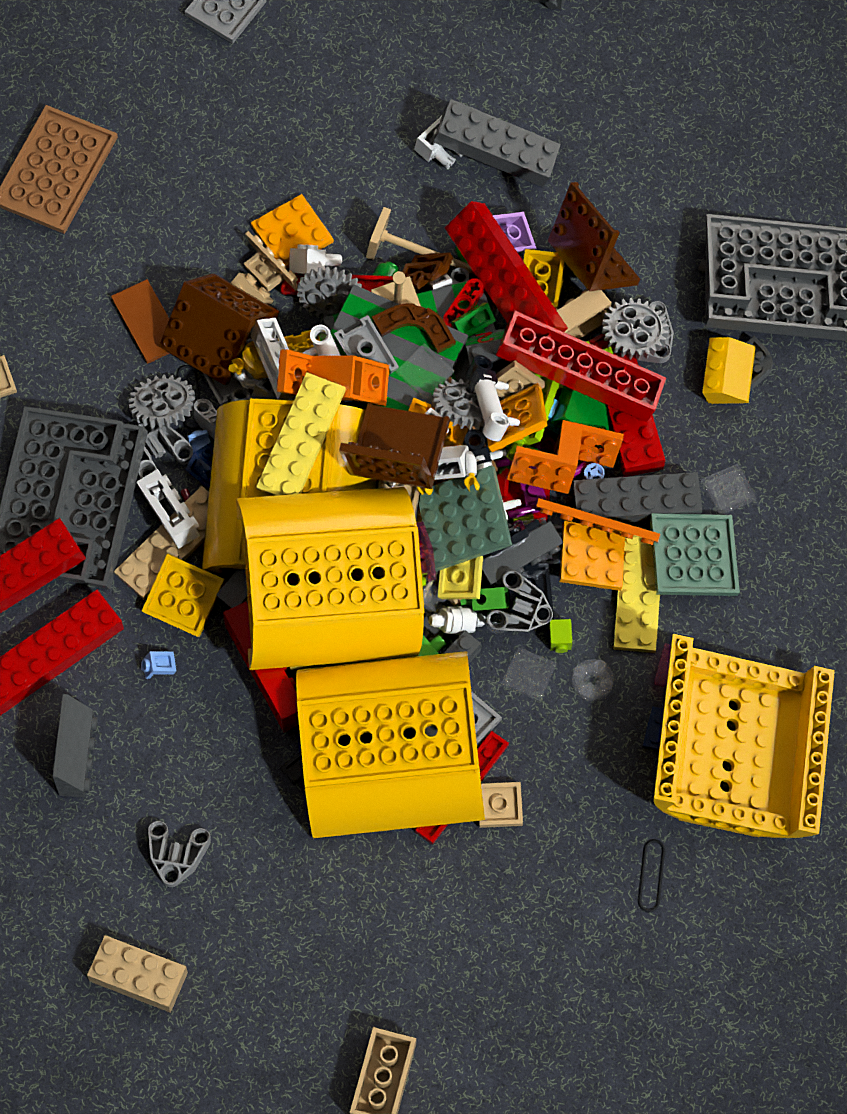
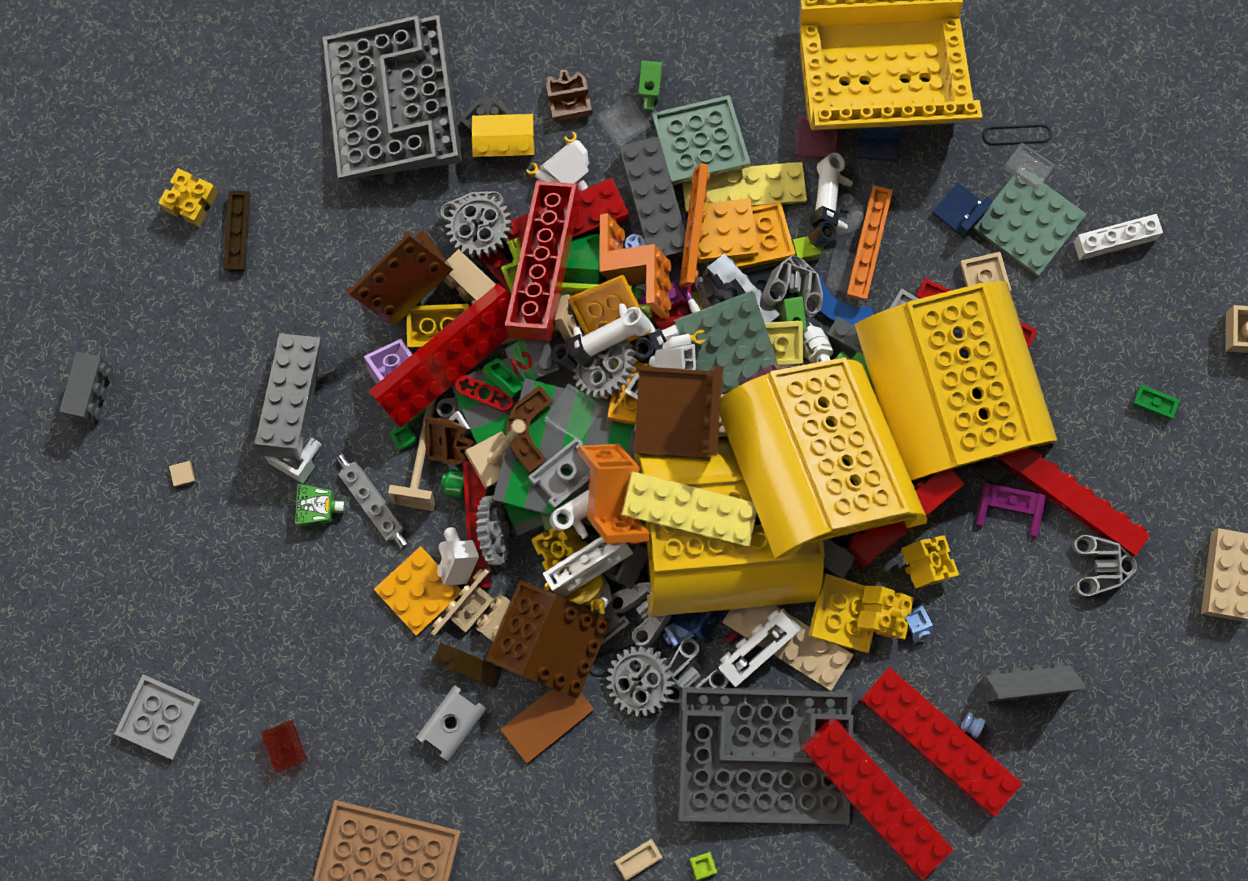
camera: 100 degrees left, 10 degrees up
(49, 692) = (972, 725): none -> light blue wheel
(159, 226) = (450, 739): none -> light grey piece
(174, 99) = (284, 746): none -> clear red bracket
(175, 629) = (885, 612): none -> yellow brick
(214, 680) = (929, 561): none -> yellow brick
(216, 253) = (466, 664): none -> dark brown slope
(246, 842) = (1074, 498): none -> red brick
(261, 779) = (1014, 500): none -> magenta plate
(333, 945) = (1156, 402): none -> green plate
(390, 156) = (316, 506): none -> torso
(394, 200) = (371, 501): none -> light grey plate
(441, 241) = (403, 437): none -> green tile
(445, 53) = (182, 474): none -> tan tile
(491, 654) = (834, 308): none -> blue tile
(516, 946) = (1118, 237): none -> white brick
(552, 864) = (1029, 223): none -> sand green plate
(555, 694) = (869, 243): none -> orange plate
(576, 796) = (961, 209): none -> dark blue bracket
(580, 601) = (771, 235): none -> light orange plate
(588, 651) = (825, 217): none -> piece
(610, 872) = (1029, 166): none -> clear tile
(673, 127) = (236, 231): none -> dark brown plate
(687, 423) = (565, 166): none -> white torso
(712, 89) = (188, 197): none -> yellow brick
(762, 440) = (568, 96): none -> reddish brown plate
(762, 516) = (650, 77): none -> bright green torso

